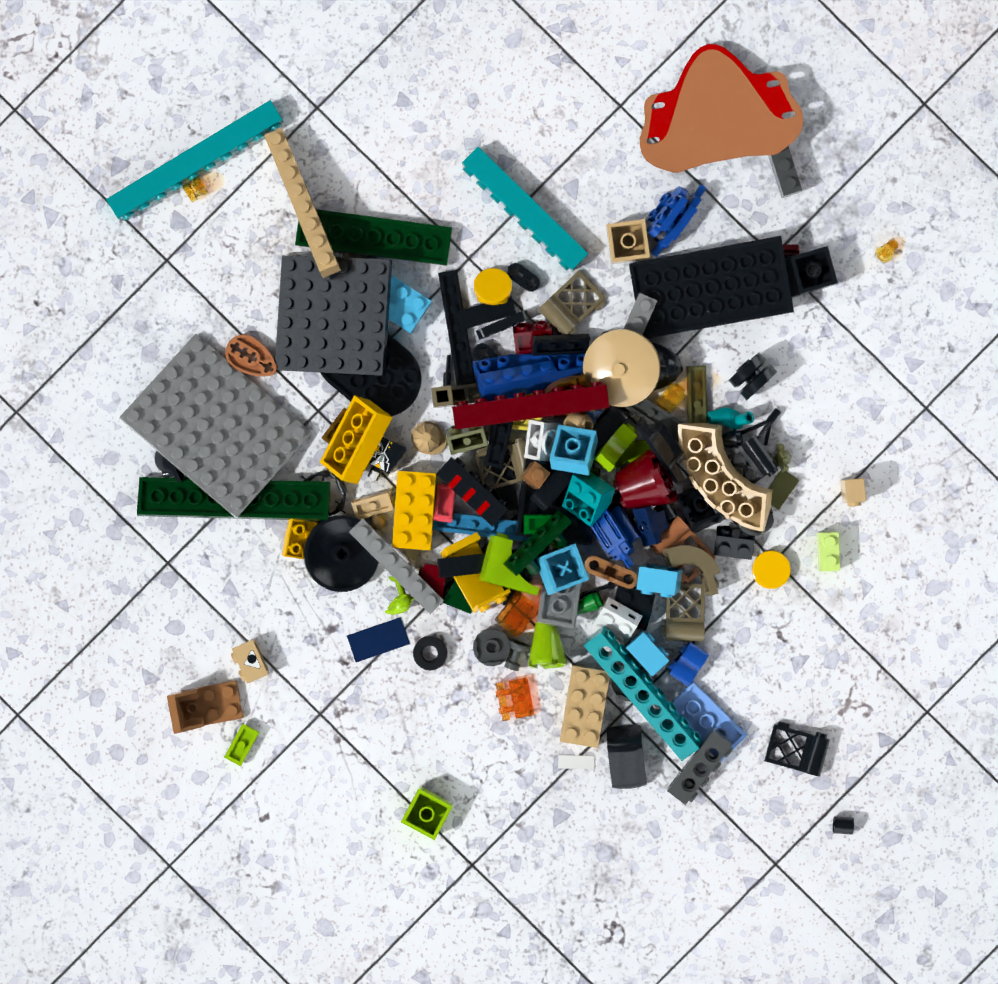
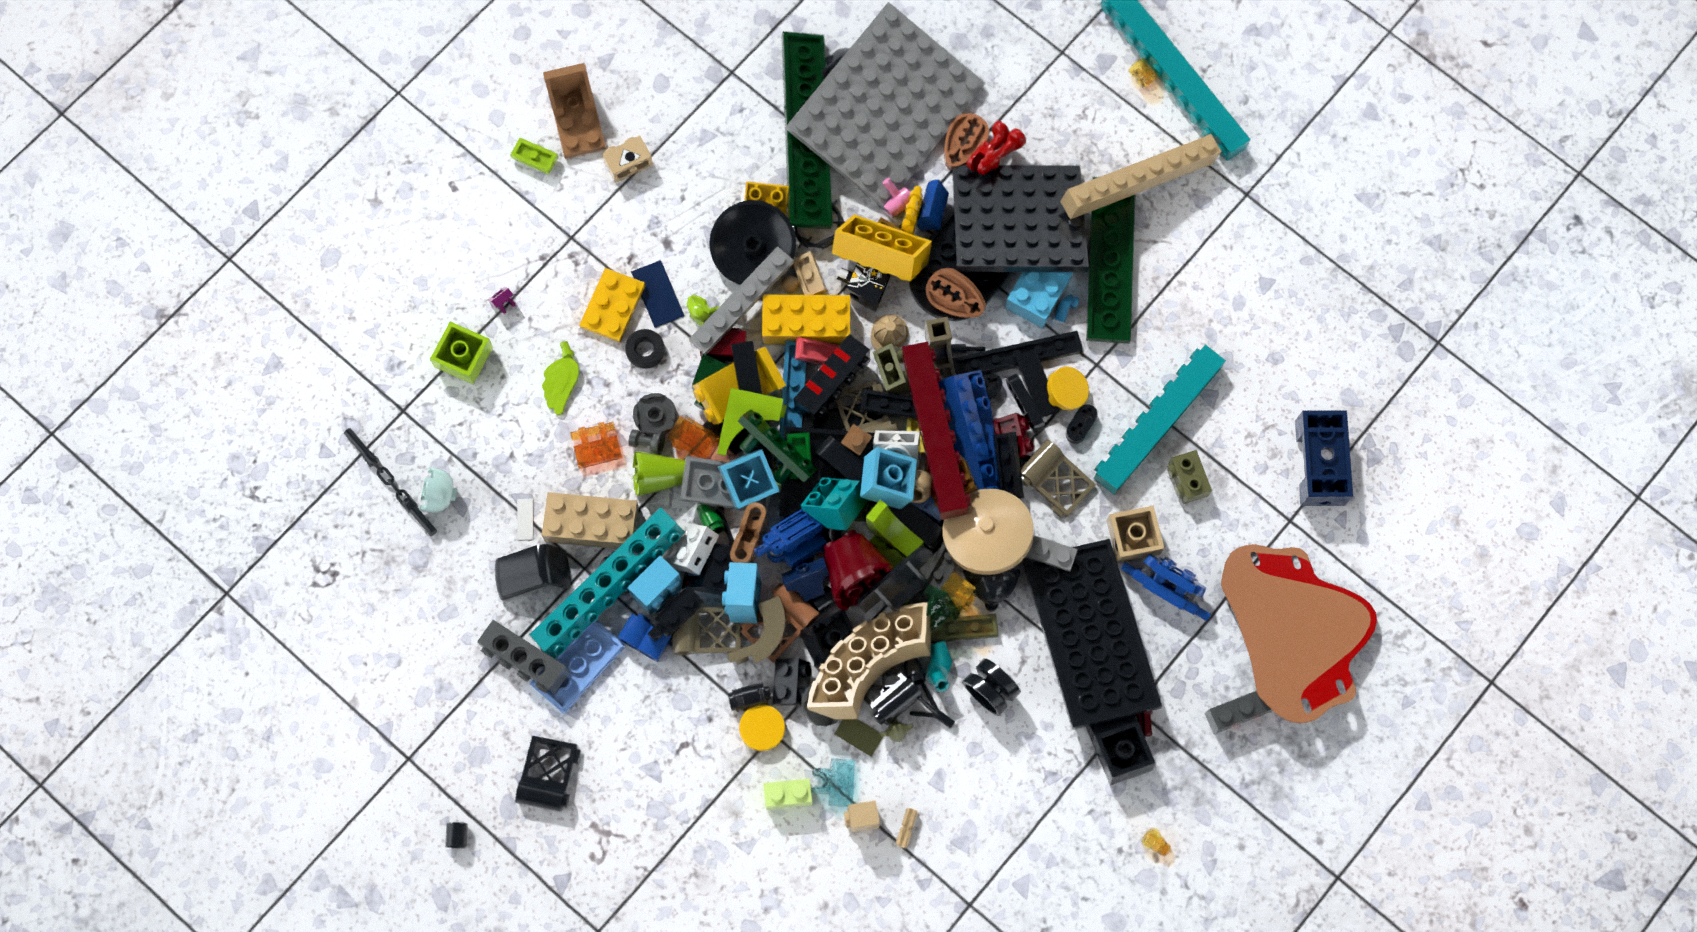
camera: 80 degrees right, 15 degrees down
(267, 341) = (986, 156): none -> red piece
(306, 420) = (898, 200): none -> bright pink piece
(315, 390) = (933, 206): none -> blue brick
(322, 410) = (912, 210): none -> yellow plate
(376, 778) = (500, 298): none -> magenta tile
(387, 680) = (612, 305): none -> yellow plate
(395, 374) = (945, 302): none -> nougat piece
(415, 282) = (1064, 305): none -> dark azure arm
(453, 727) = (560, 379): none -> lime animal
(516, 892) = (408, 503): none -> black piece
(550, 836) = (437, 491): none -> light aqua cylinder
(552, 65) = (1325, 480): none -> dark blue plate
(578, 189) = (1189, 477): none -> olive brick
(673, 636) = (675, 614): none -> black hinge
(683, 414) = (940, 606): none -> clear green tile
(744, 578) = (749, 697): none -> black head
(820, 510) = (837, 782): none -> clear light blue plate
(859, 454) = (905, 832): none -> tan piece

